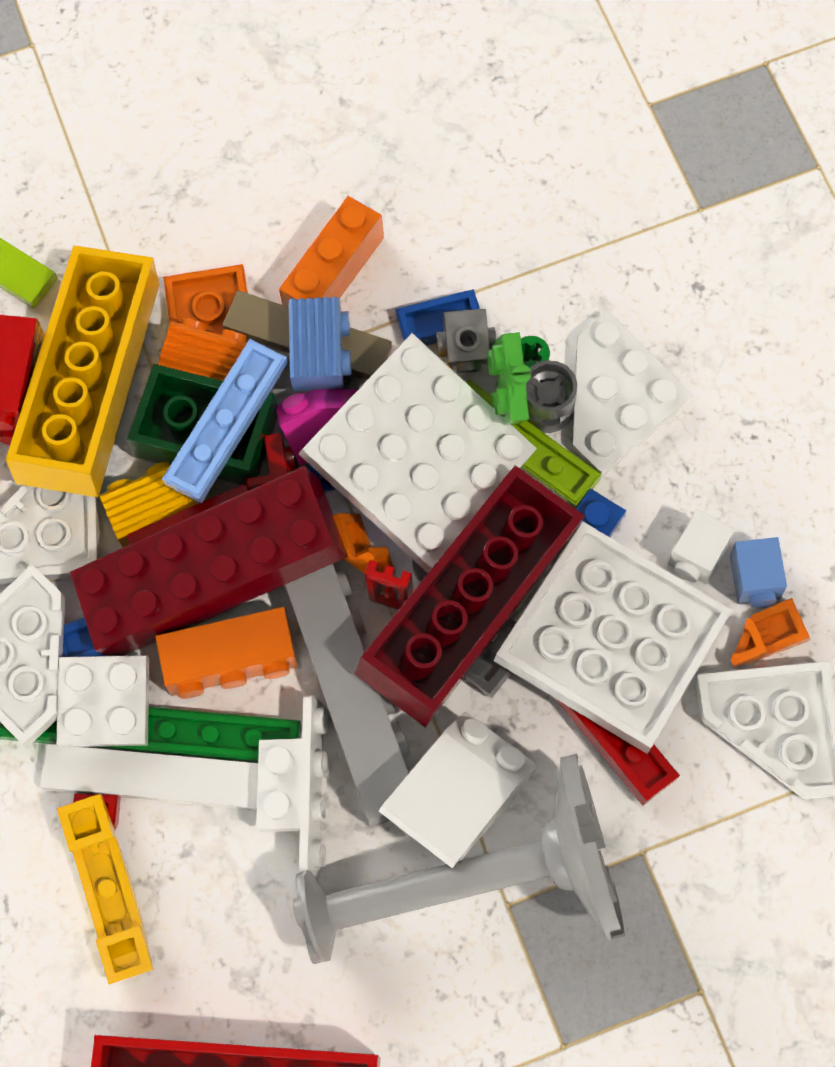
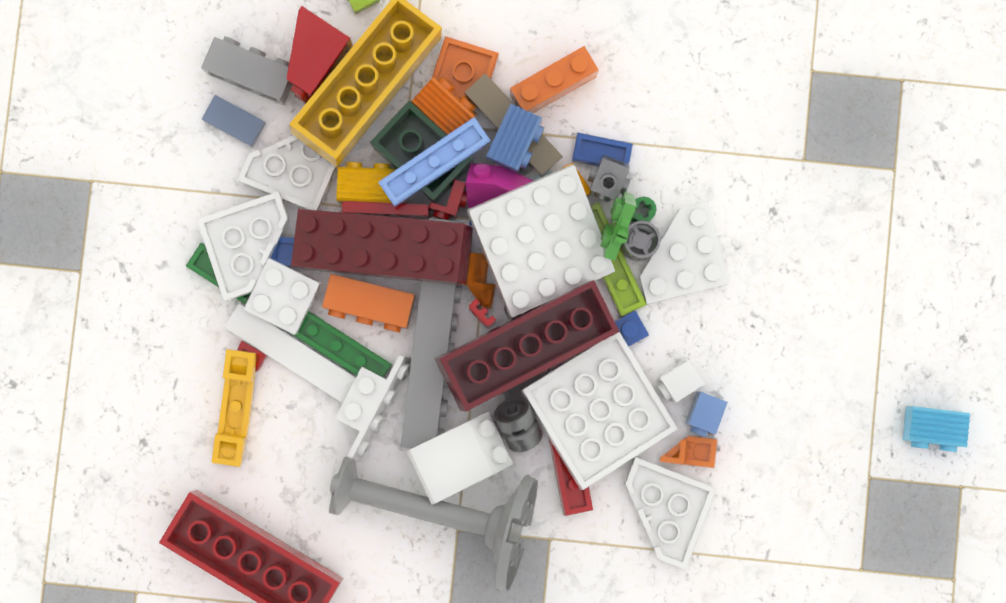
camera: 20 degrees right, 15 degrees up
(515, 707) = (518, 424): none -> flat silver wheel

